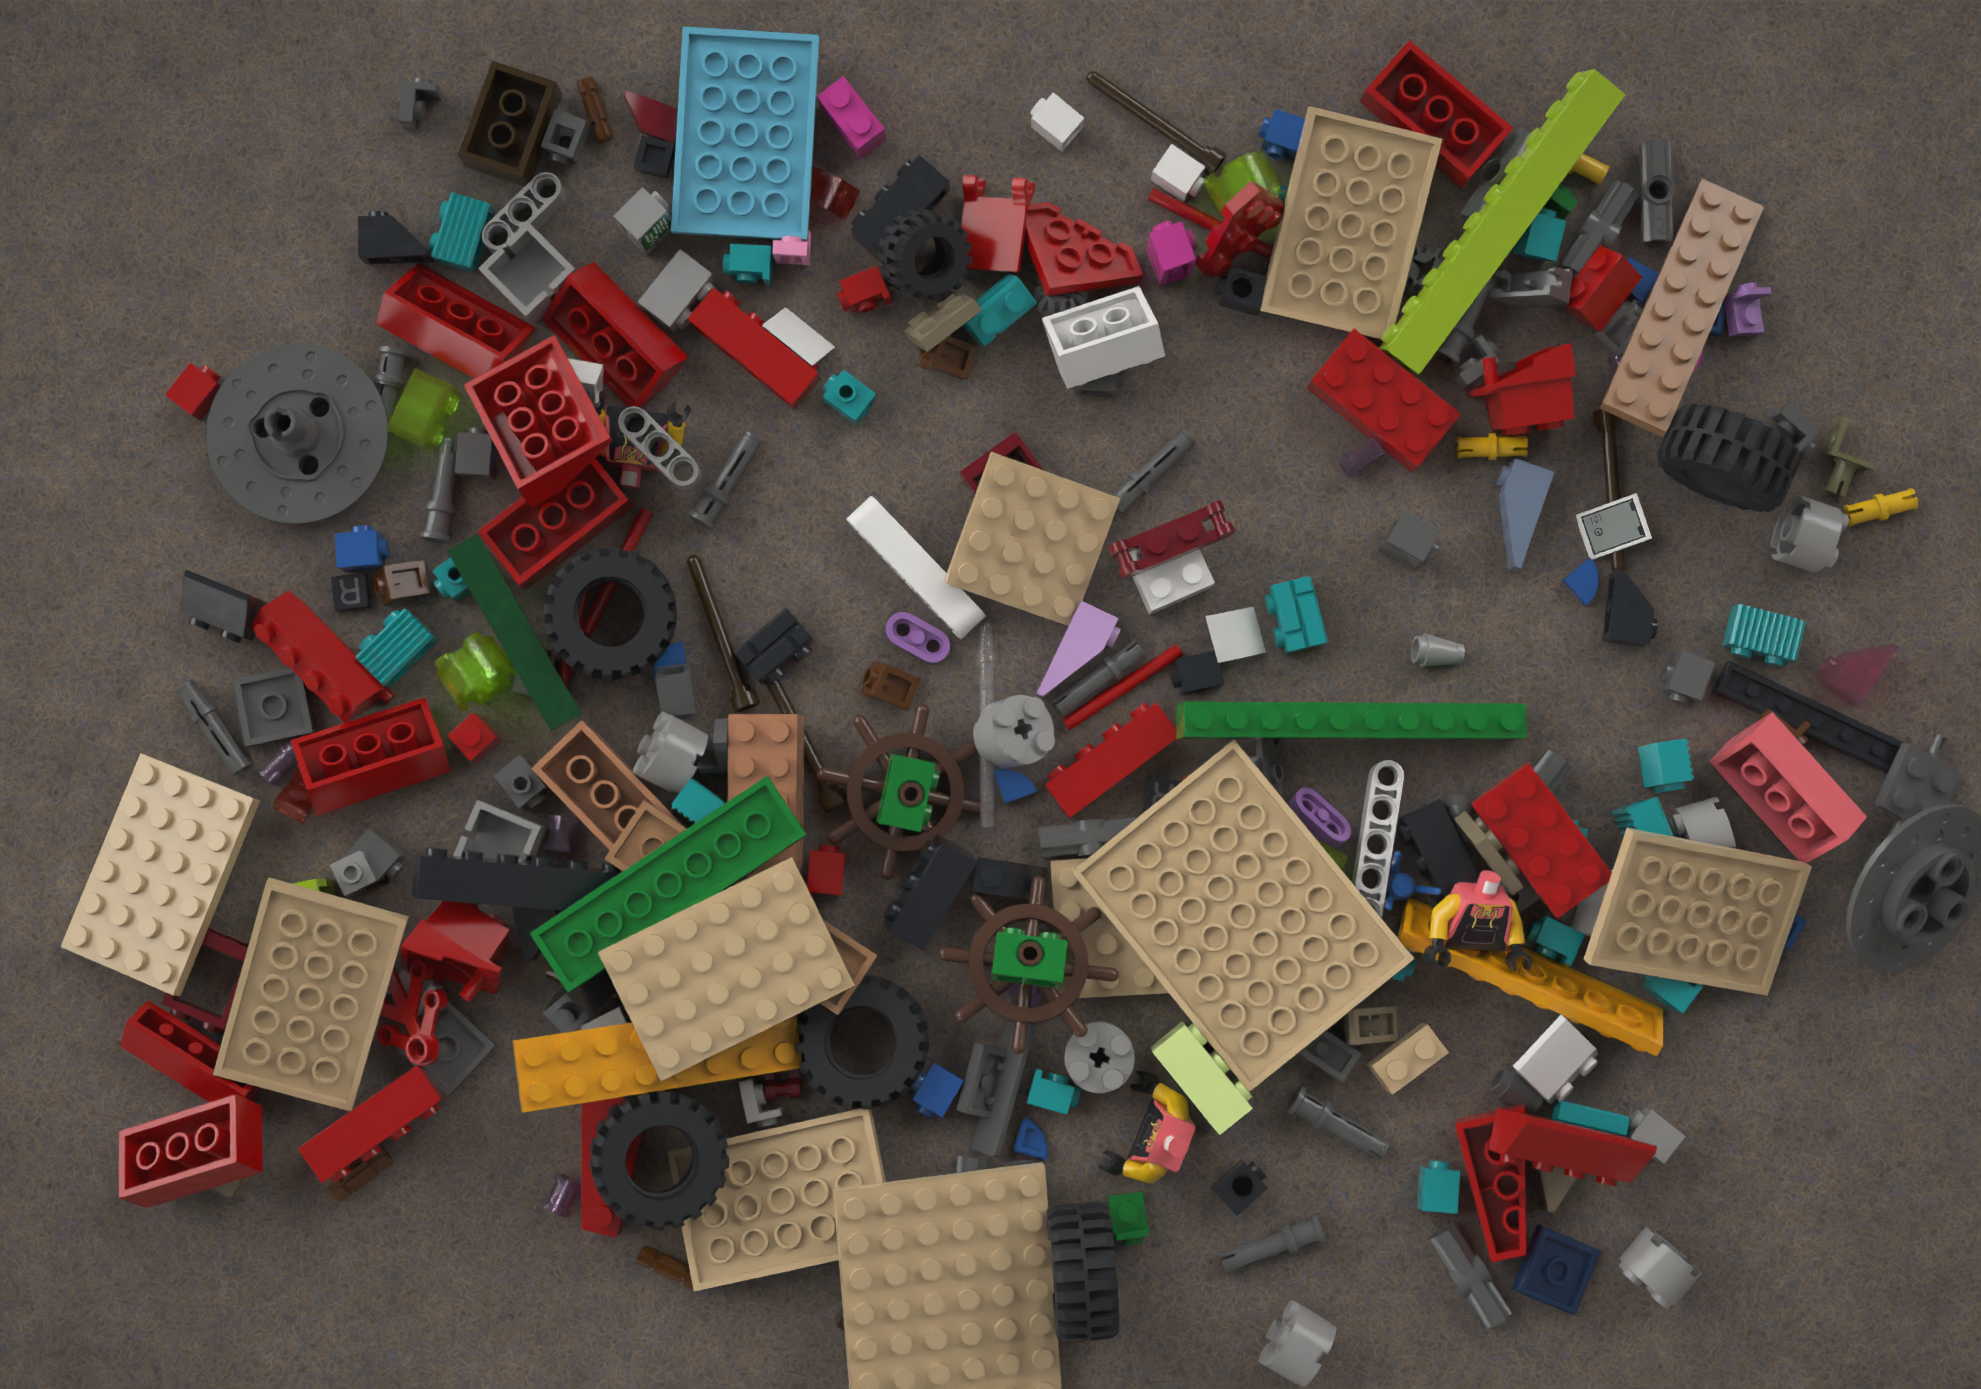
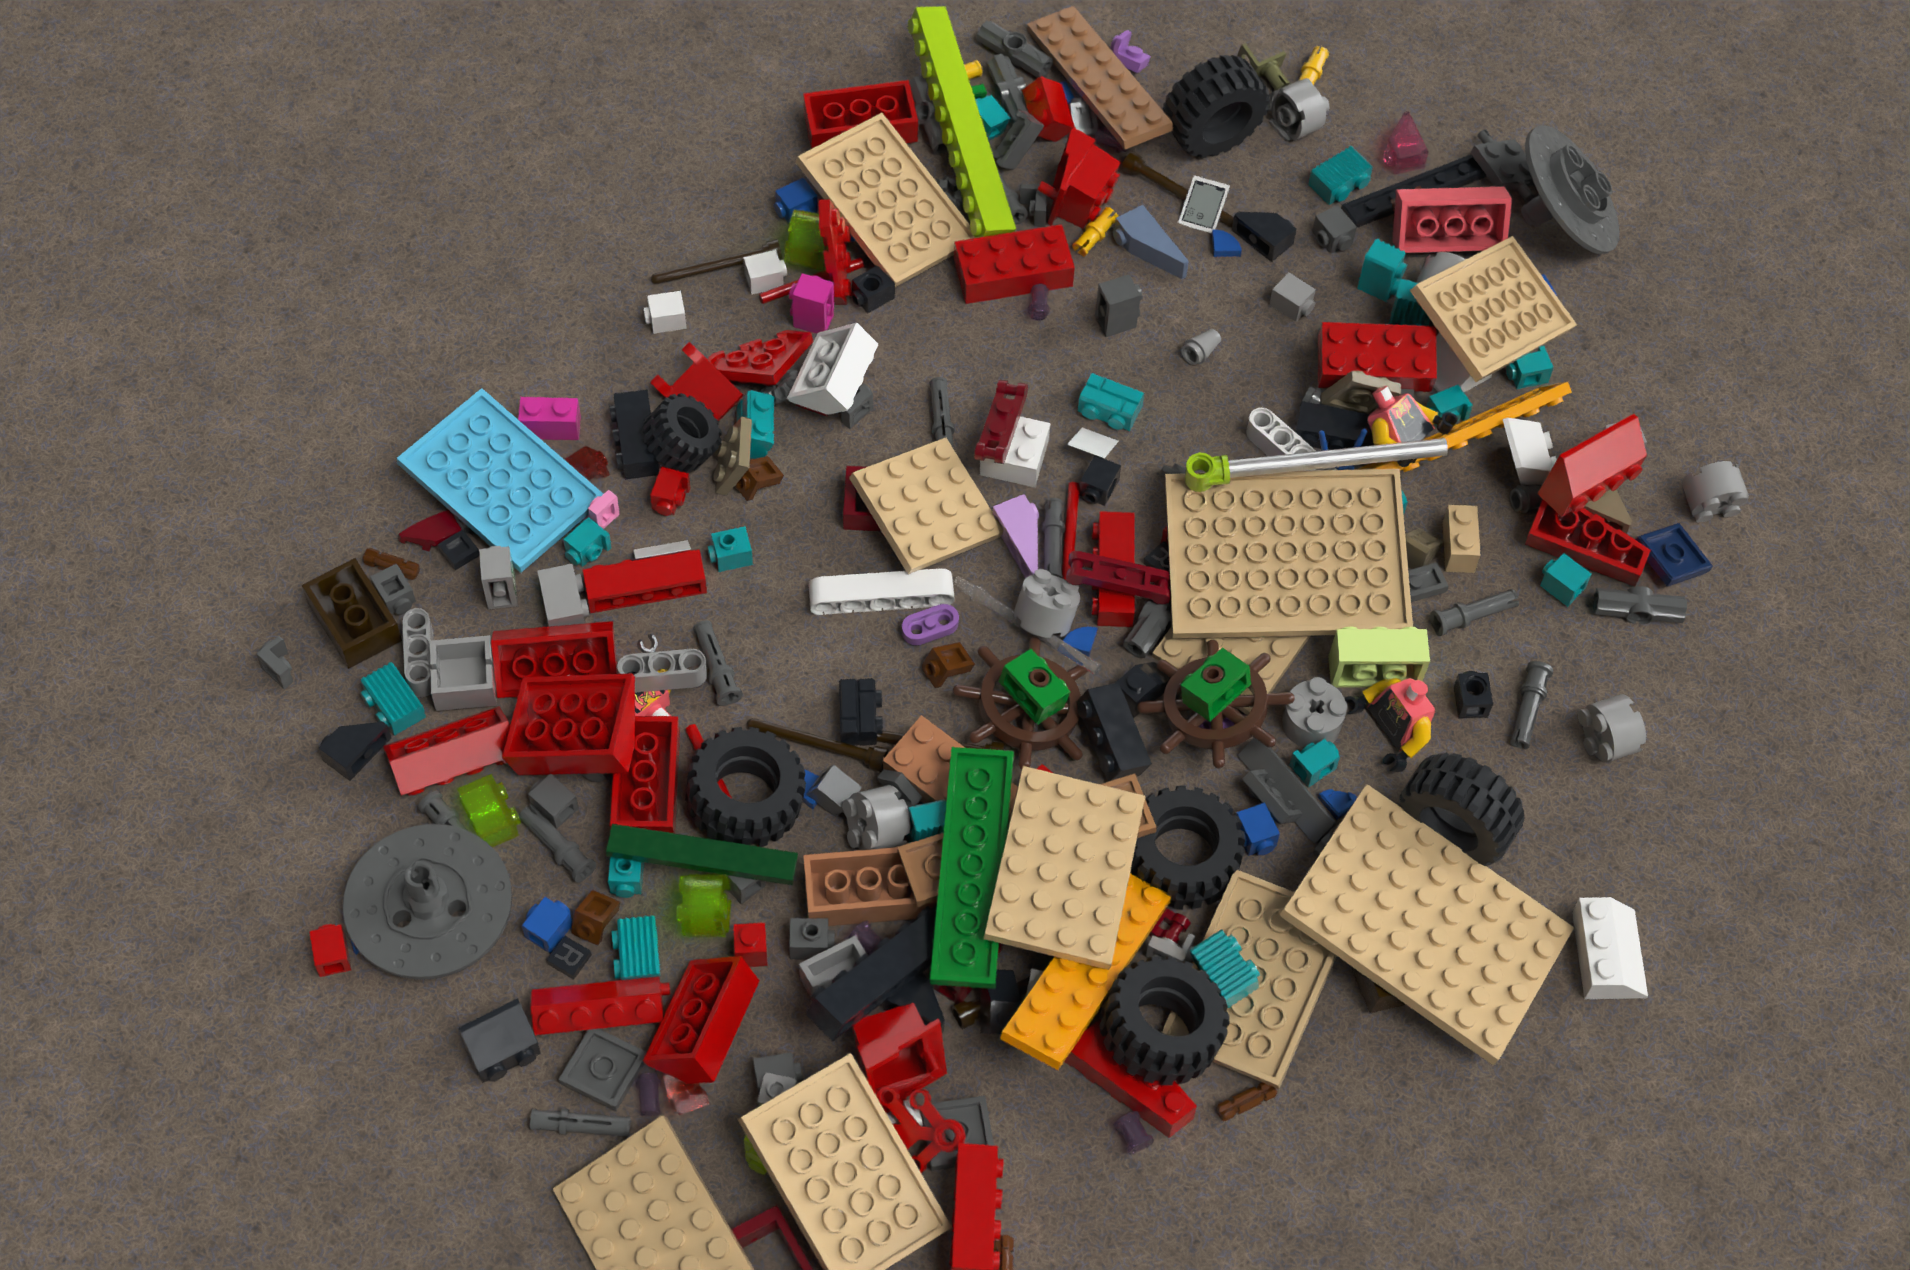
camera: 55 degrees left, 25 degrees down
(760, 1170) = (1224, 965): none -> teal brick
(1090, 778) = (1119, 576): none -> dark red plate
(1272, 794) = (1220, 470): none -> flat silver piece
(1351, 721) = (1206, 413): green brick -> none
(1567, 697) = (1293, 297): none -> light grey brick

